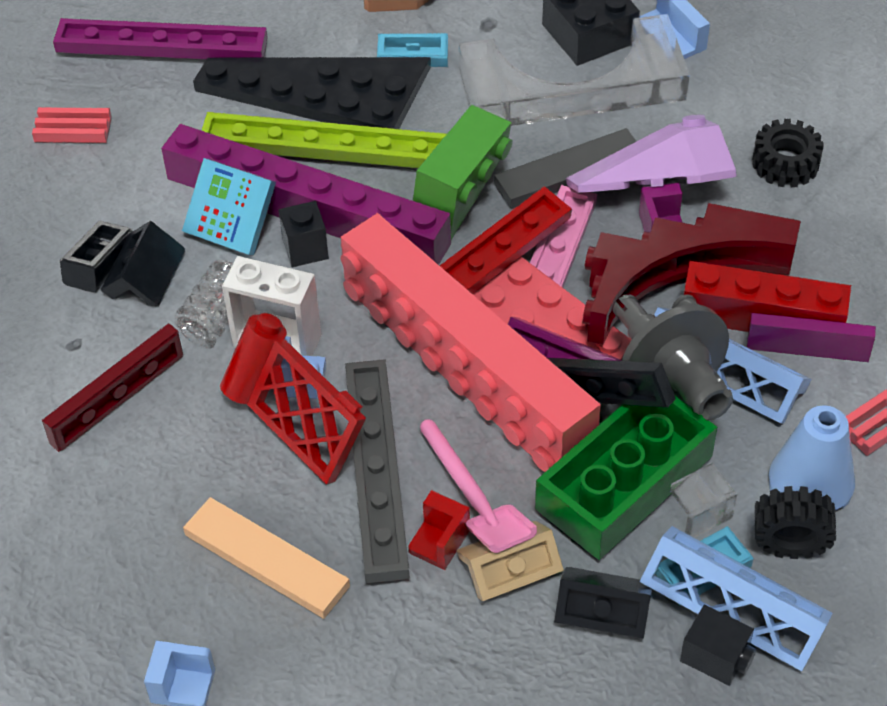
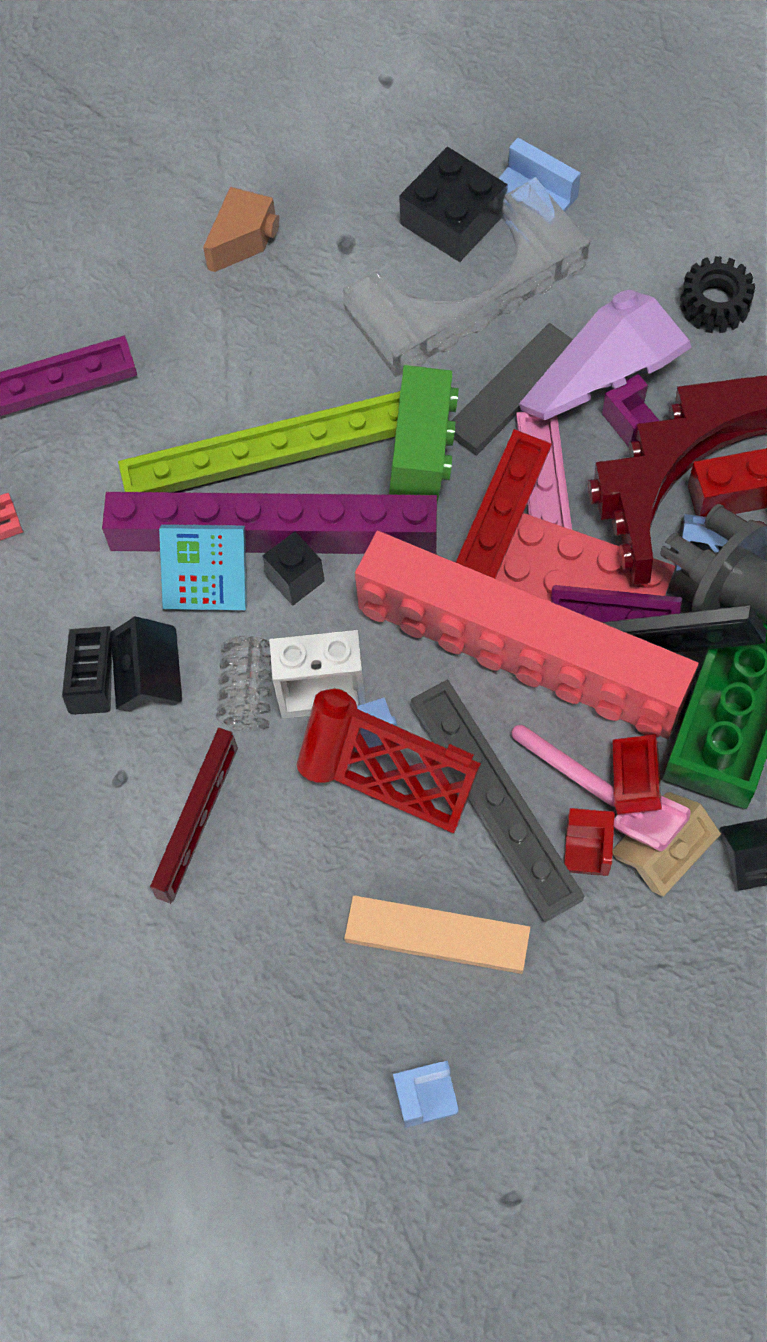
camera: 20 degrees left, 15 degrees up
(320, 88) = (235, 381): black wing -> none
(415, 45) = (289, 309): medium azure tile -> none
(508, 490) = (636, 774): none -> red tile

